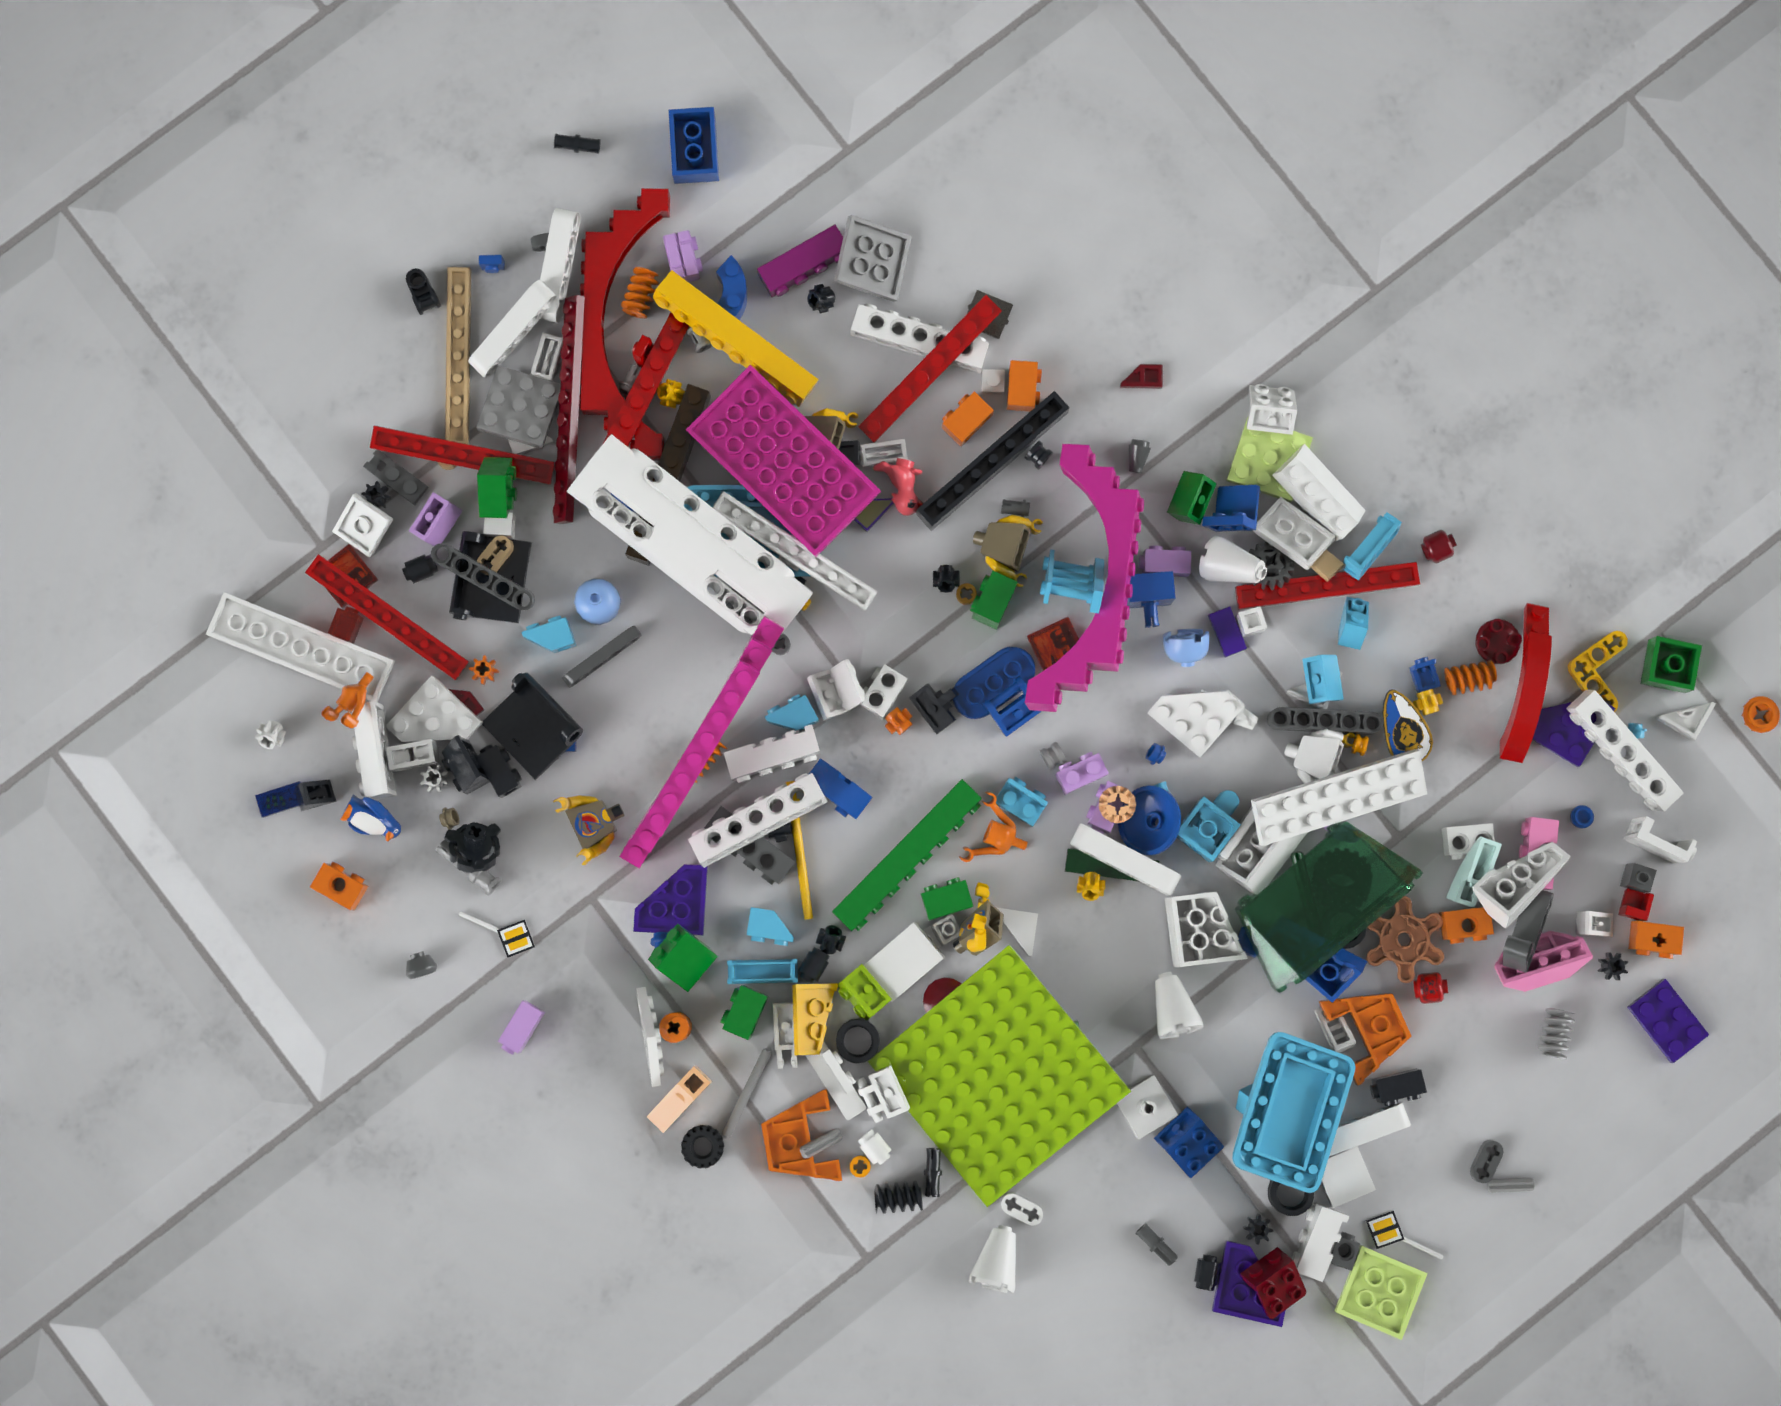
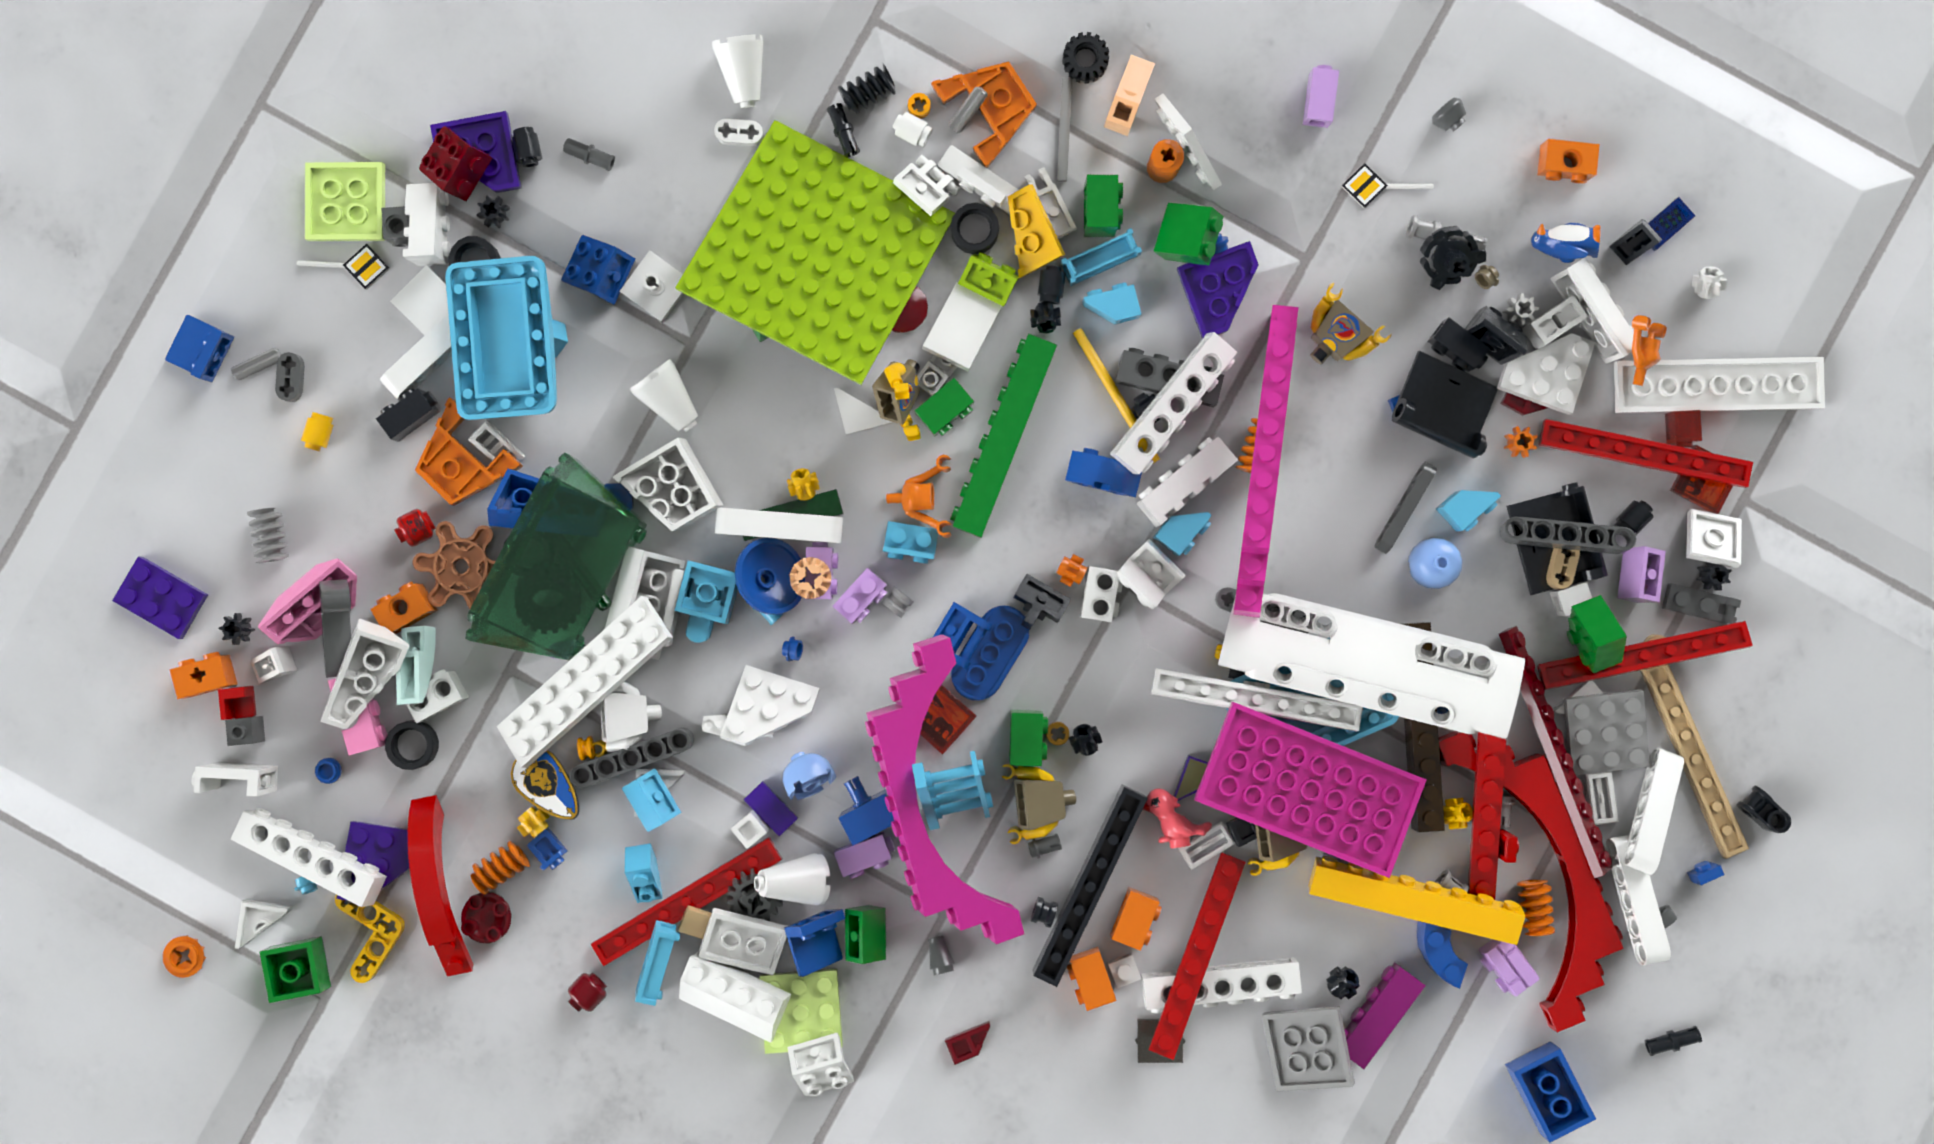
camera: 165 degrees right, 5 degrees up
(1481, 1104) = (317, 431): none -> yellow brick
(1517, 797) = (392, 741): none -> black tyre
(1554, 1218) = (199, 348): none -> blue bracket

